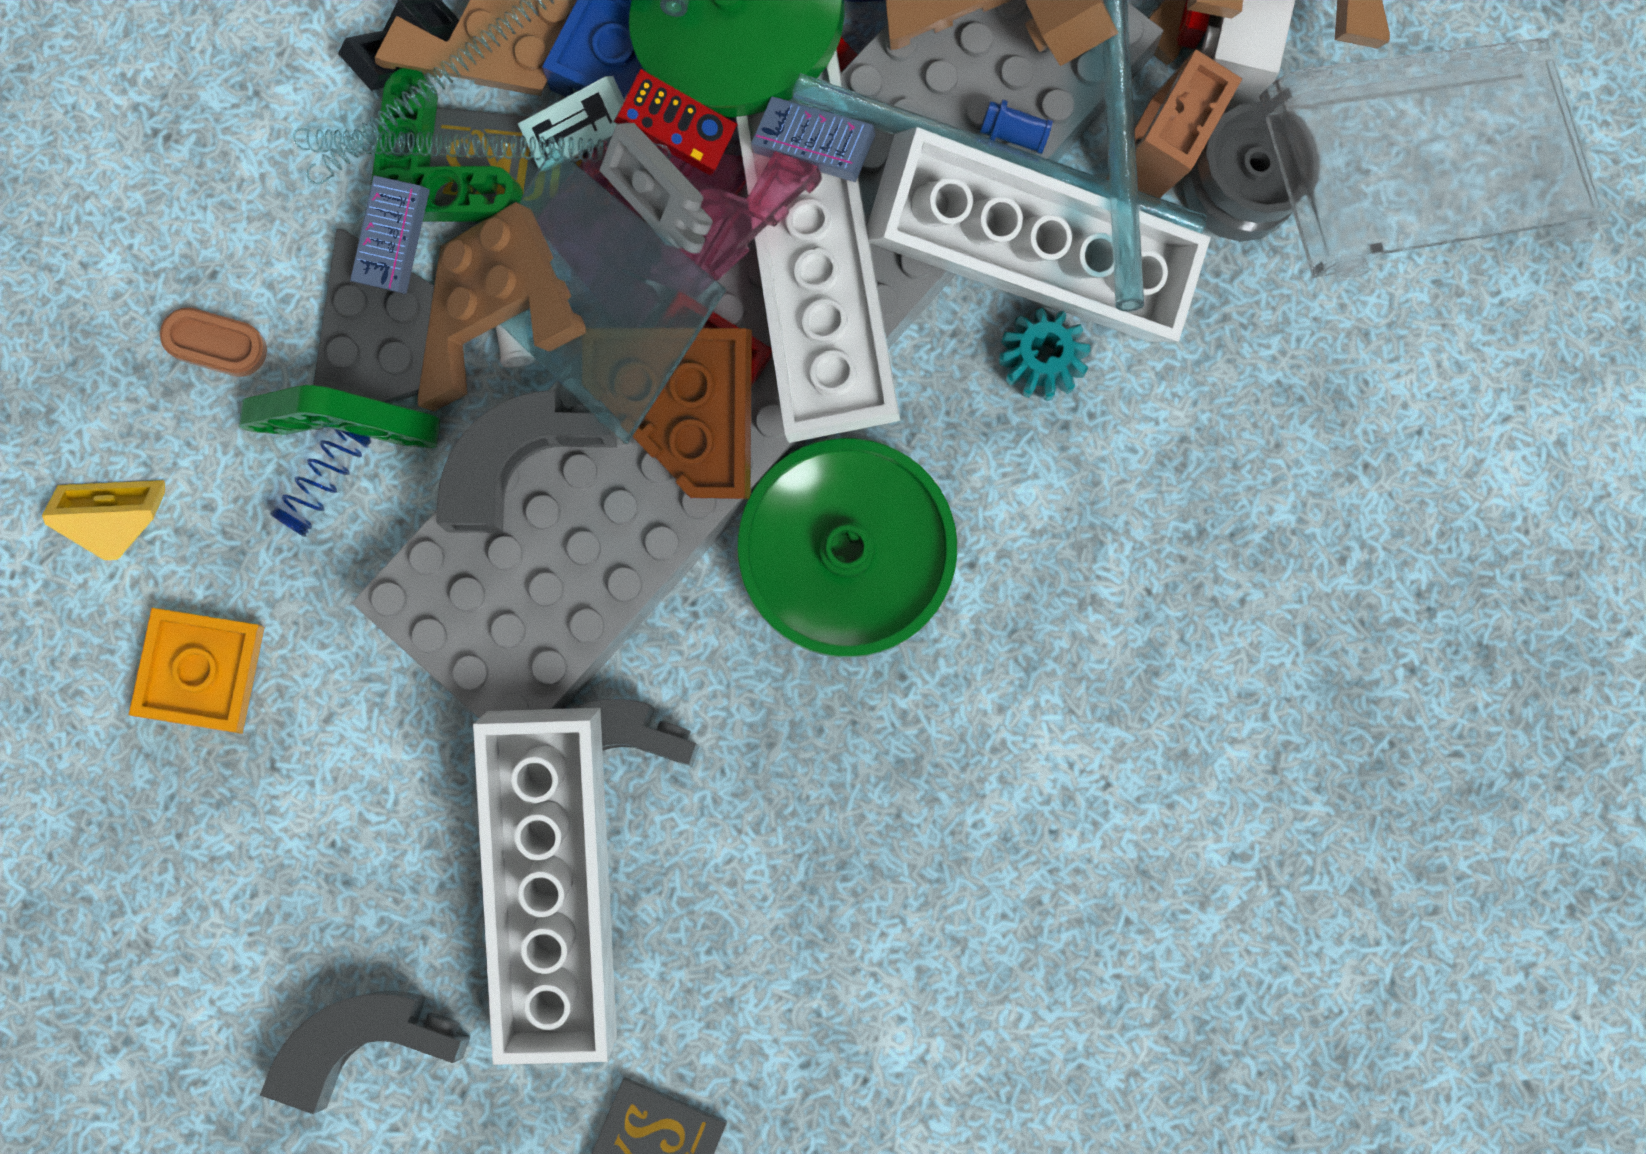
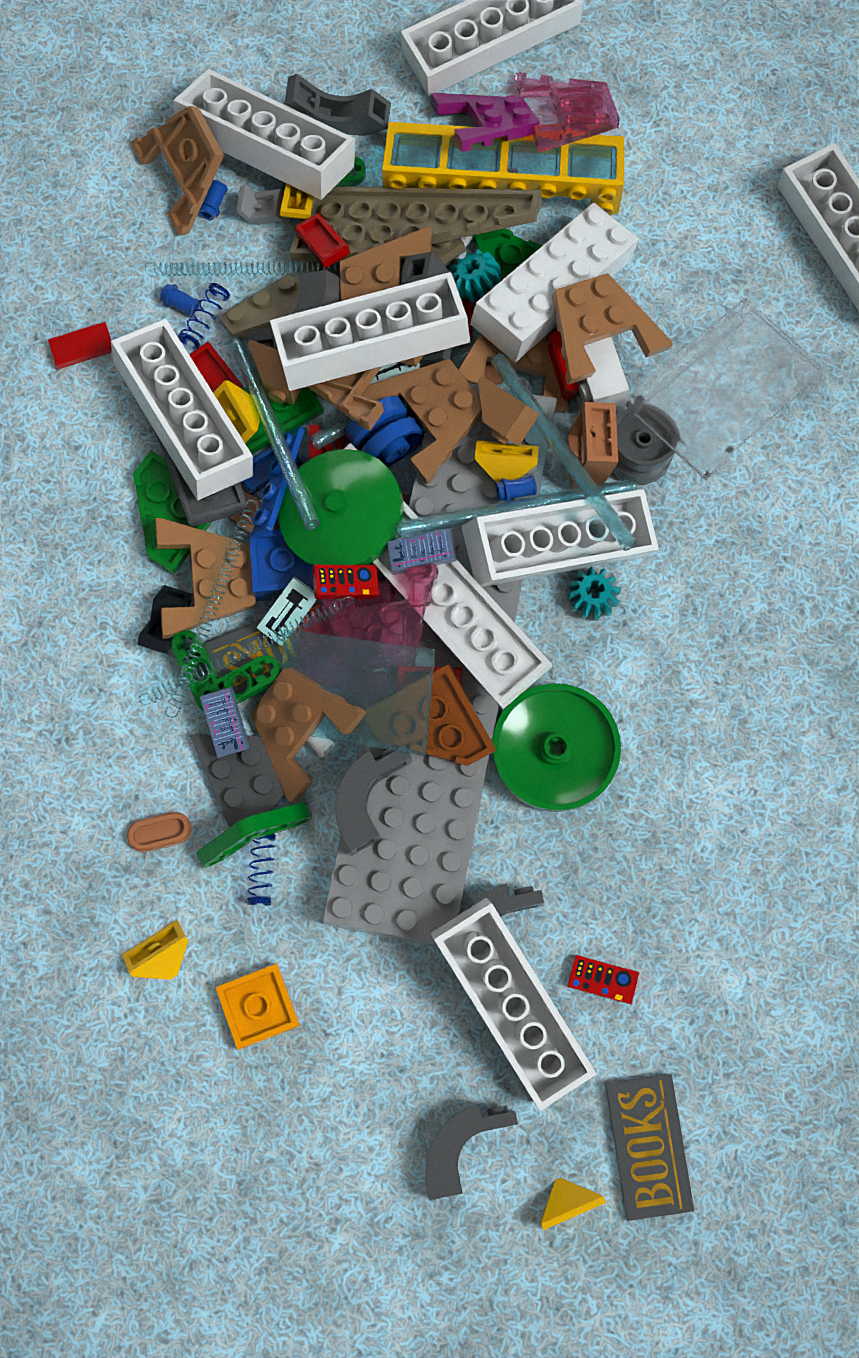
camera: 30 degrees left, 5 degrees down
(655, 188) = (361, 620): light grey hinge -> none
(712, 926) = (603, 979): none -> tile
(1025, 76) = (506, 460): none -> yellow slope

